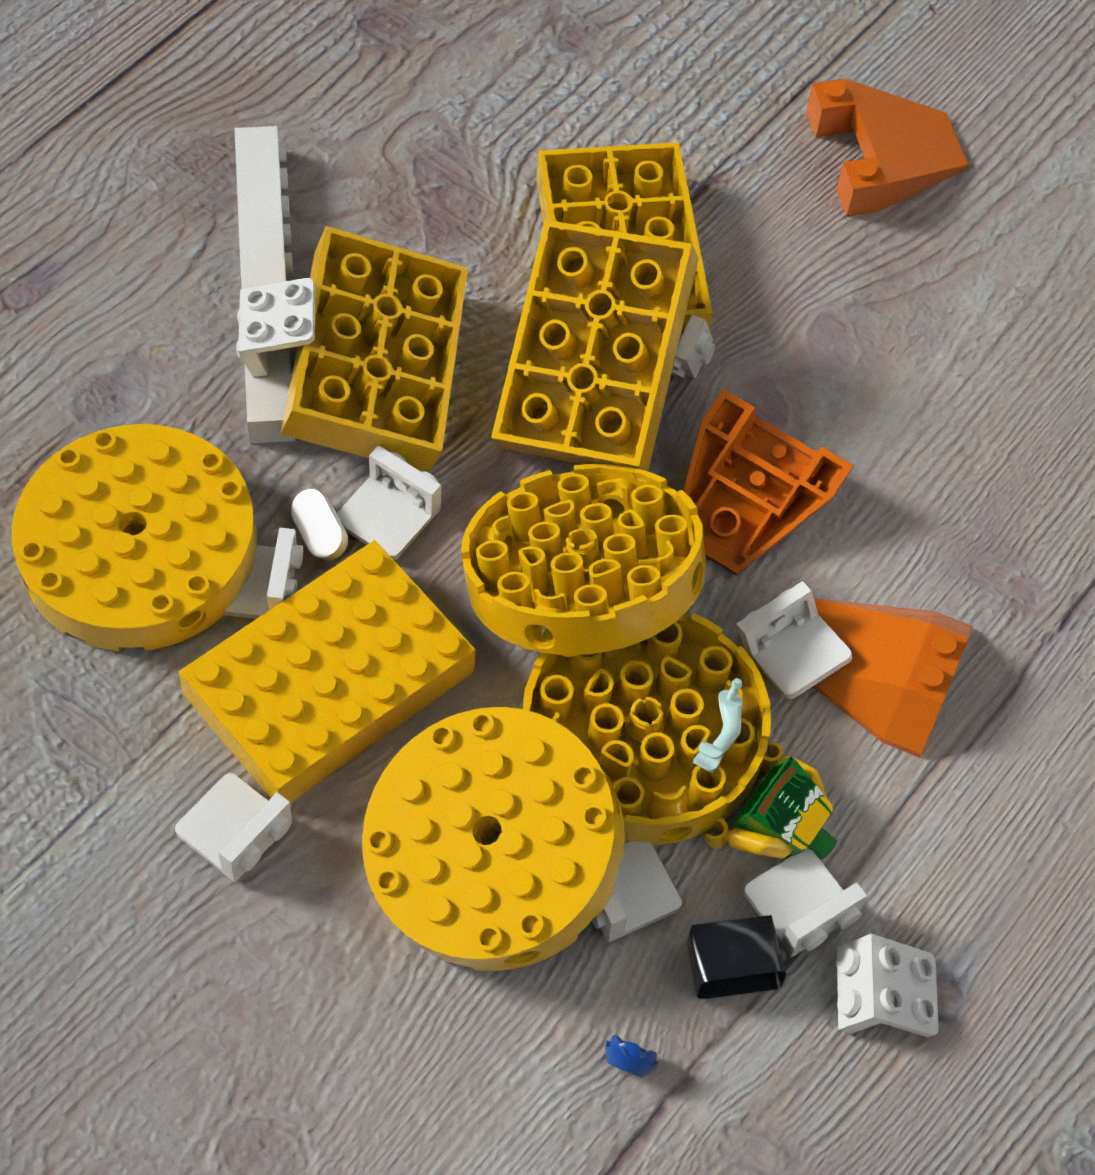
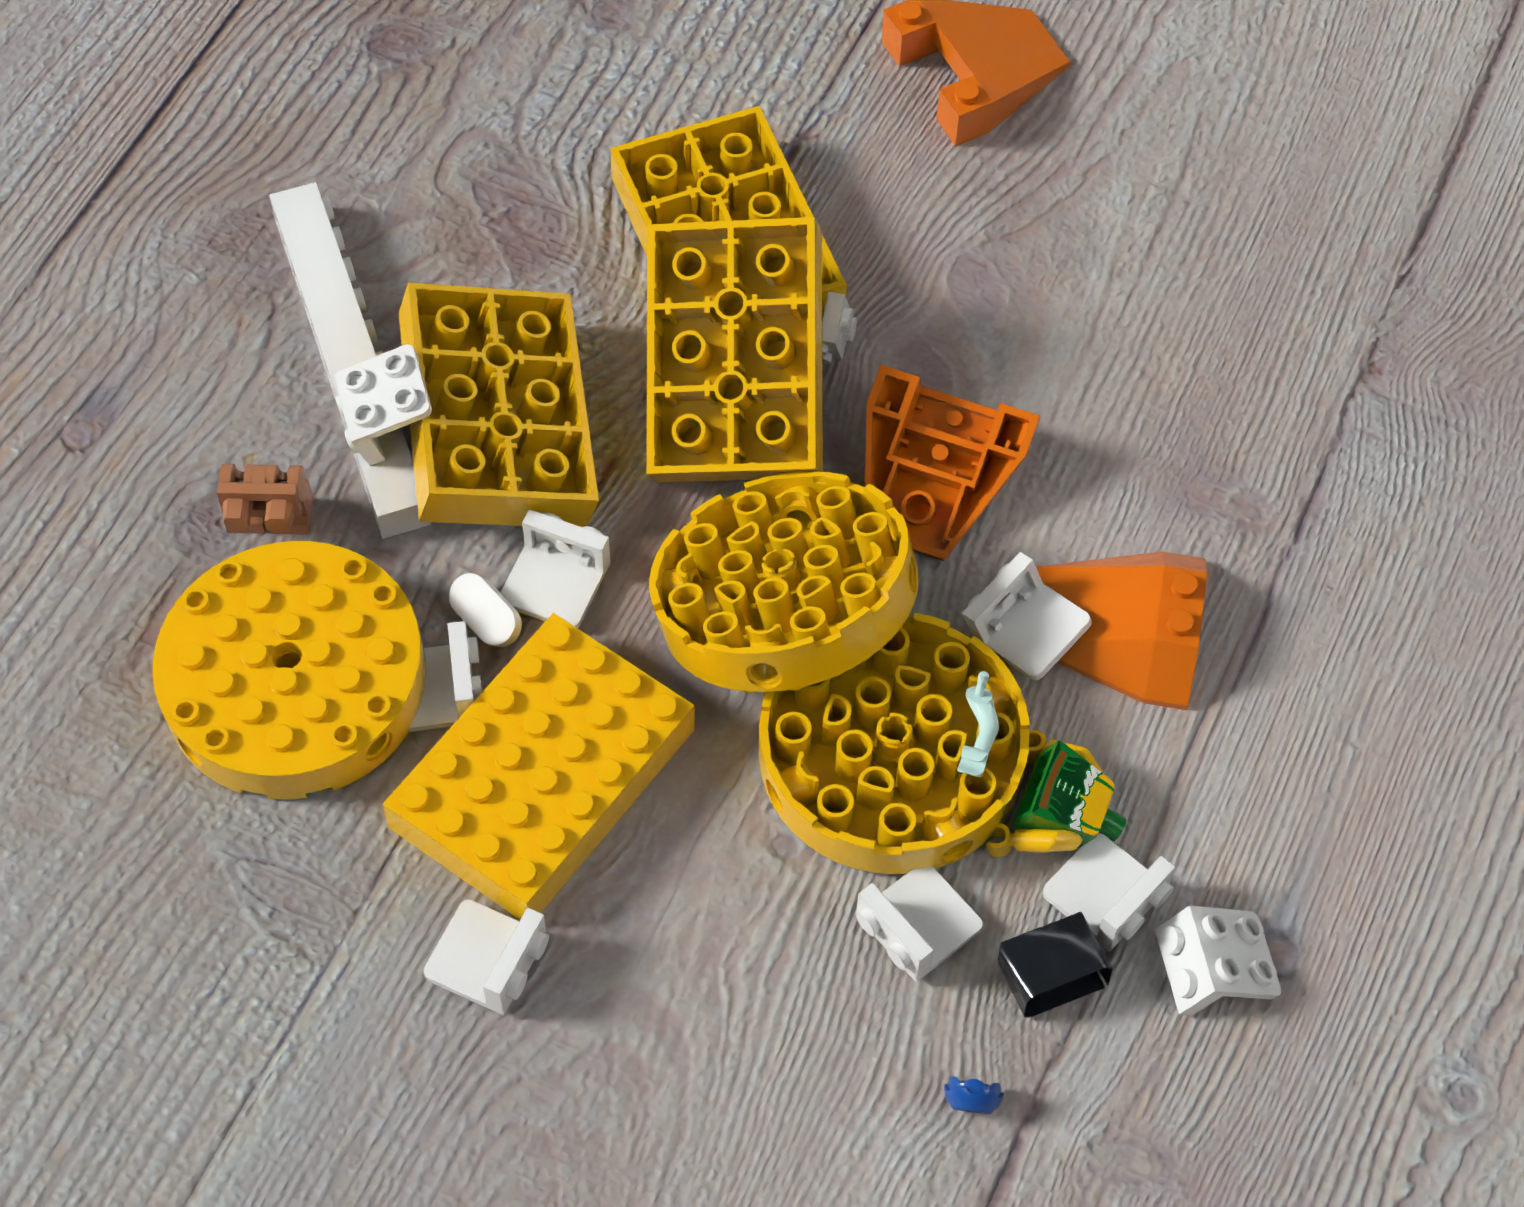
camera: 10 degrees left, 0 degrees up
(155, 386) = (265, 499): none -> nougat hips
(529, 888) = (704, 889): yellow brick -> none

